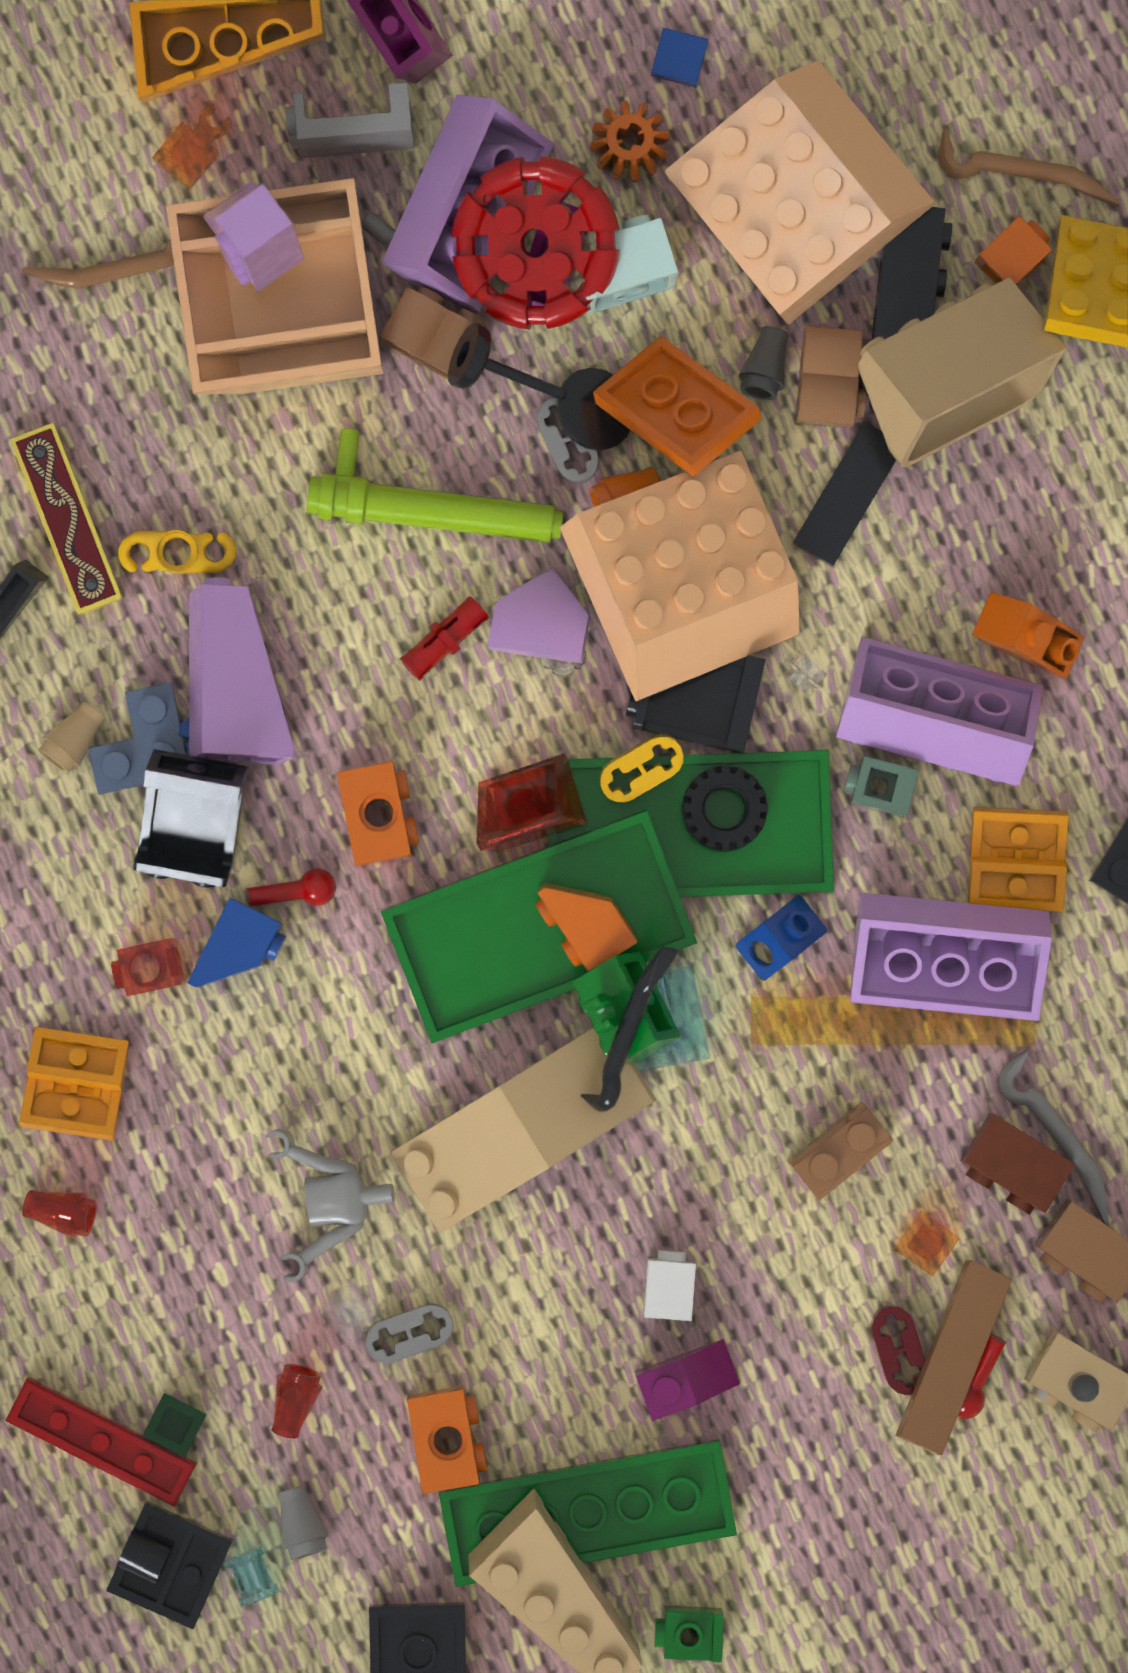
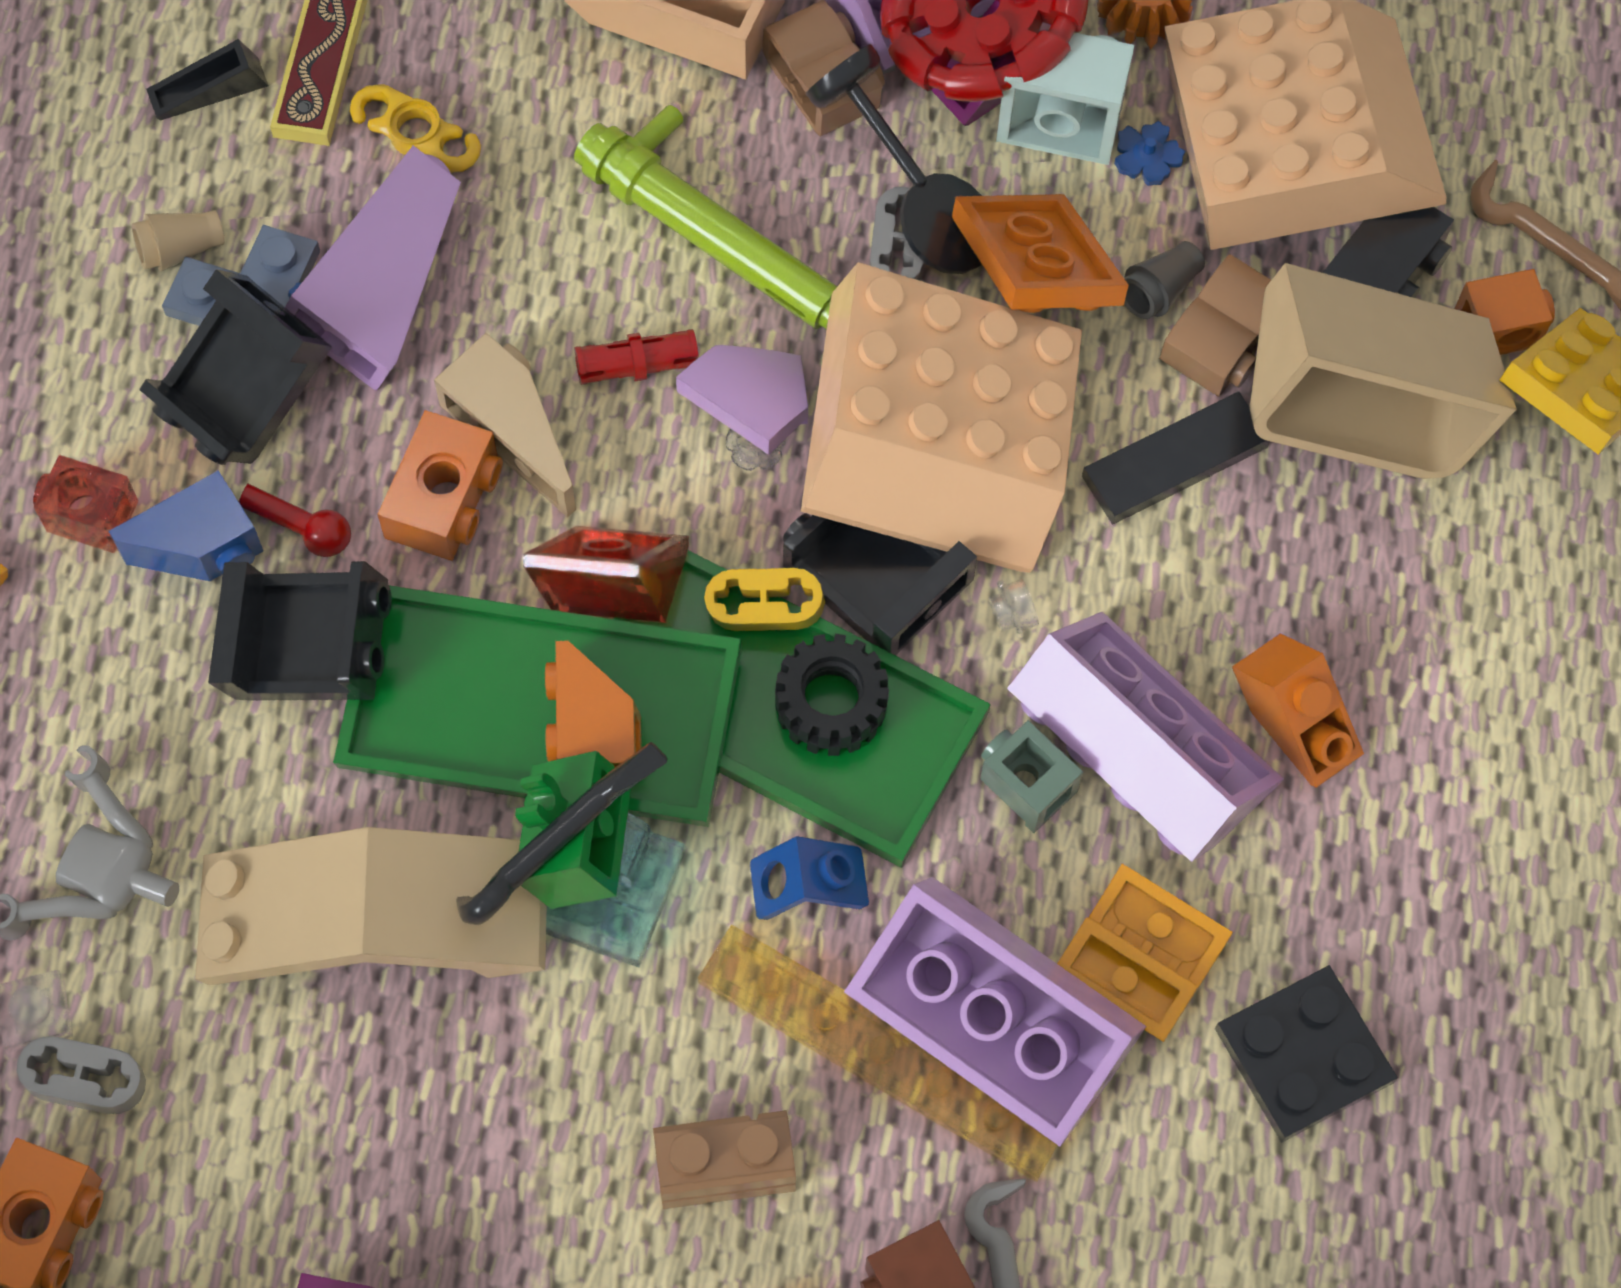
camera: 35 degrees right, 20 degrees down
(358, 973) = (299, 634): none -> black panel
(381, 732) = (496, 392): none -> tan slope
(669, 1286) = (417, 1200): white brick -> none
(699, 263) = (1148, 153): none -> blue plant

